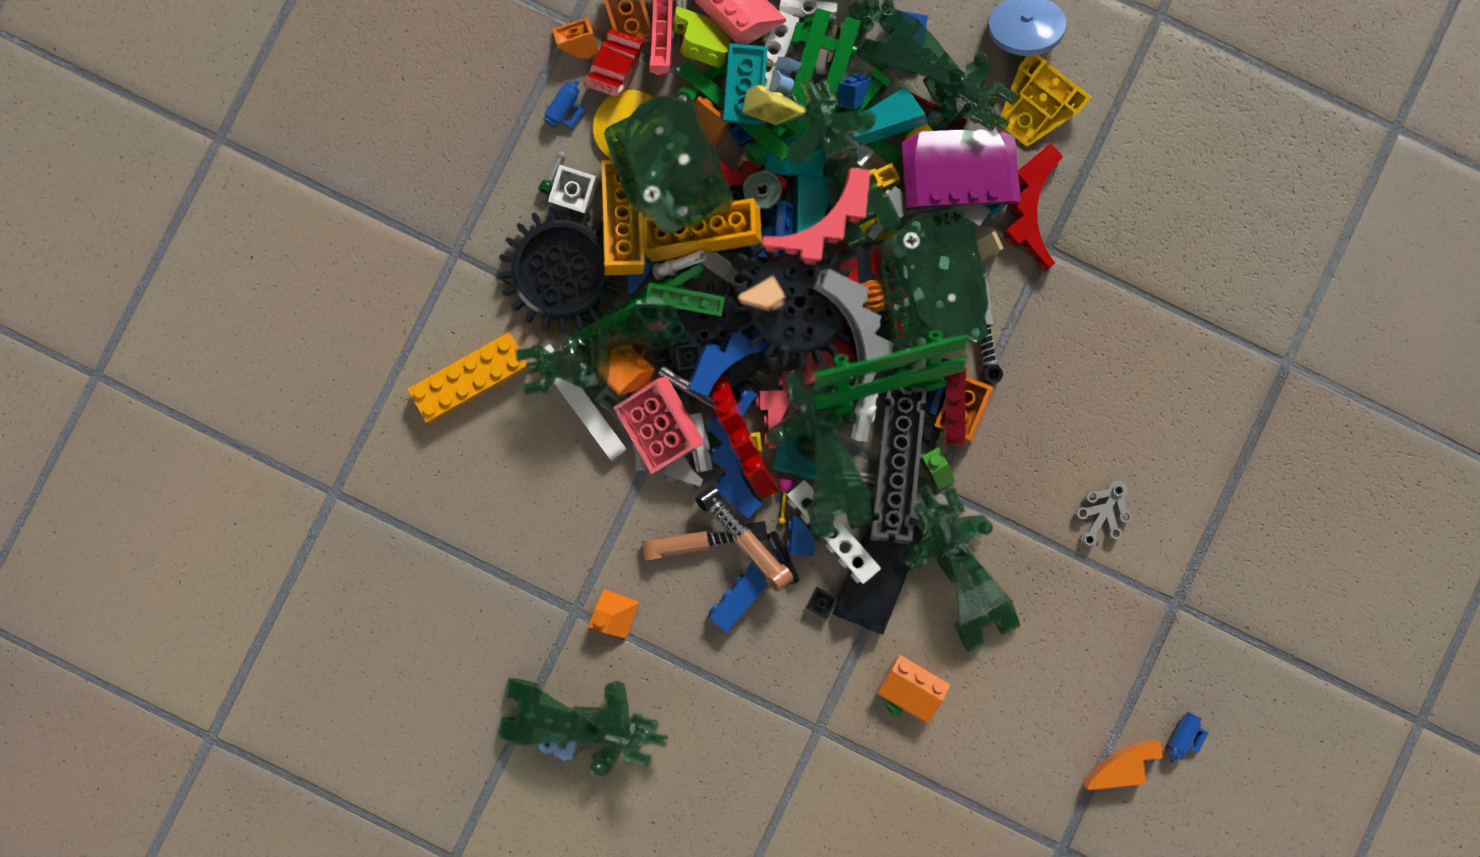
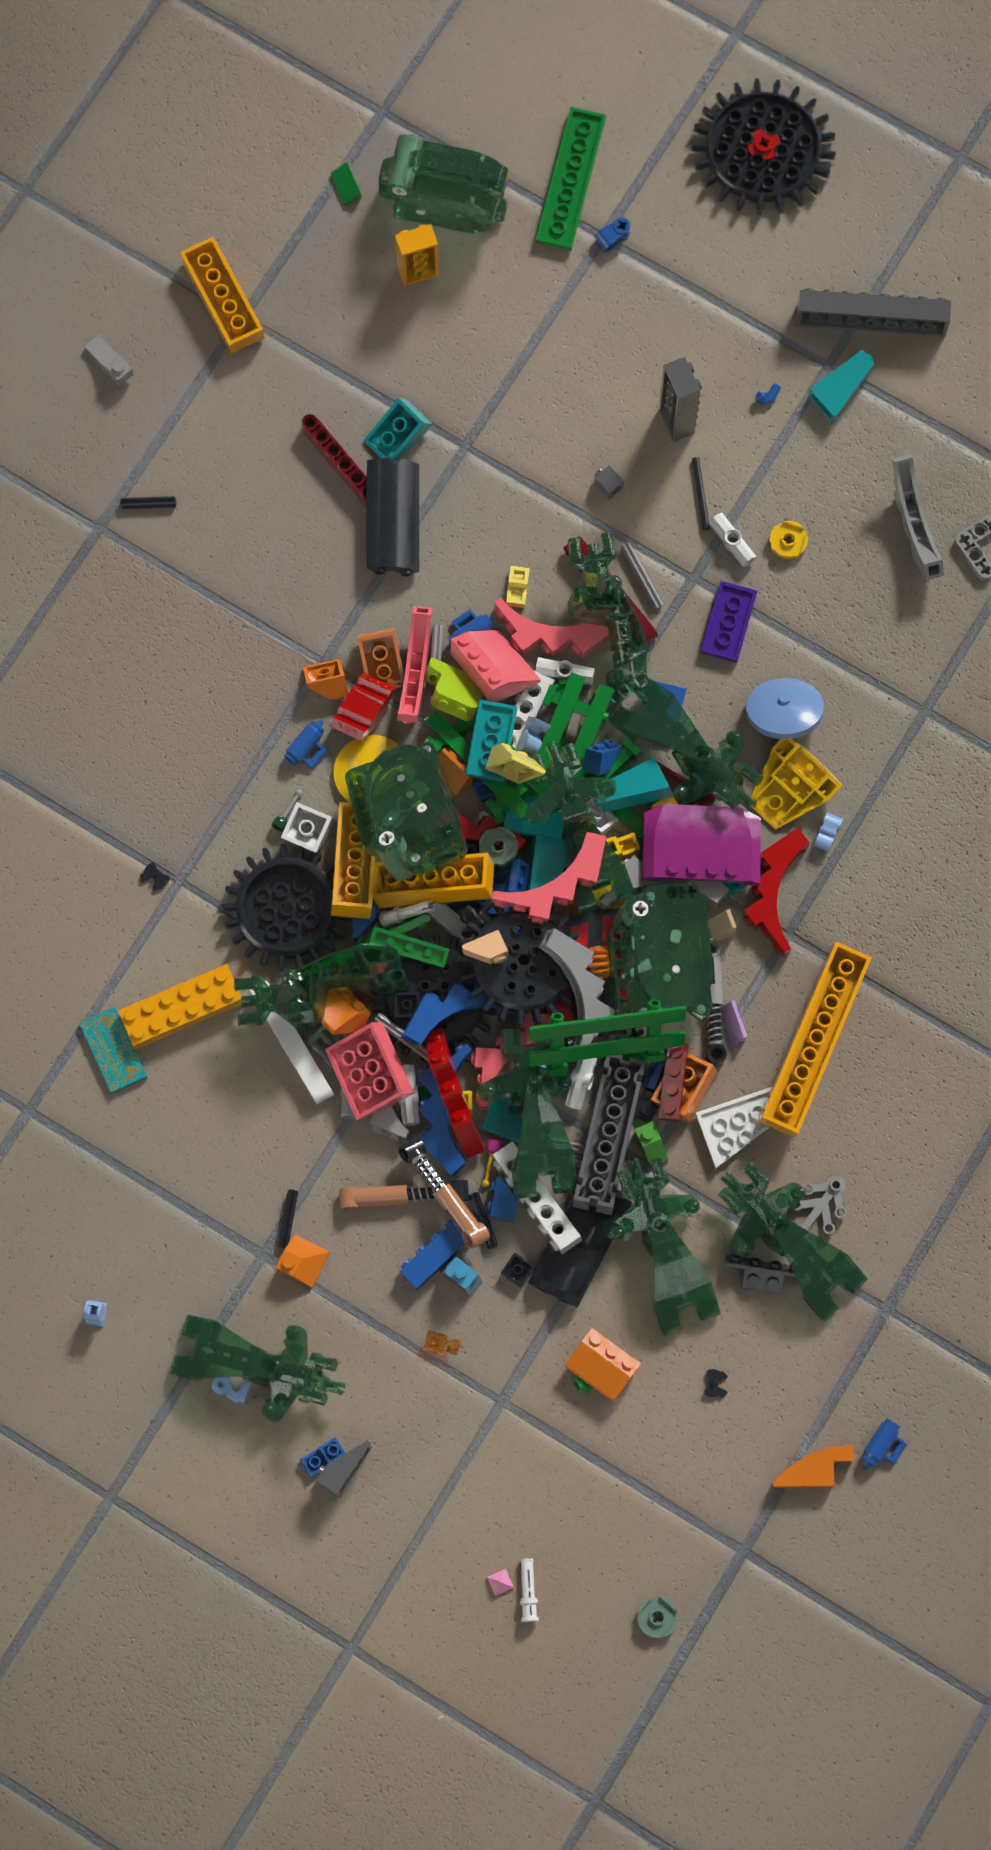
camera: 10 degrees right, 10 degrees down
(407, 426) = (113, 1050): none -> teal tile
(418, 685) = (95, 1313): none -> light blue leg
(436, 253) = (151, 871): none -> black piece
(595, 574) = (287, 1220): none -> black axle
(653, 801) = (322, 1456): none -> blue slope
(671, 817) = (340, 1471): none -> dark grey slope
(753, 682) = (438, 1343): none -> clear orange plate
(767, 614) = (462, 1276): none -> dark azure torso
(1005, 341) = (733, 1023): none -> lavender slope
(1018, 698) = (713, 1389): none -> black piece
(1022, 436) = (732, 1125): none -> white wing
(1056, 530) = (814, 1261): none -> clear green piece
(1056, 582) = (760, 1274): none -> black bracket
(1079, 145) = (828, 832): none -> light blue leg
(1087, 351) = (814, 1039): none -> light orange brick

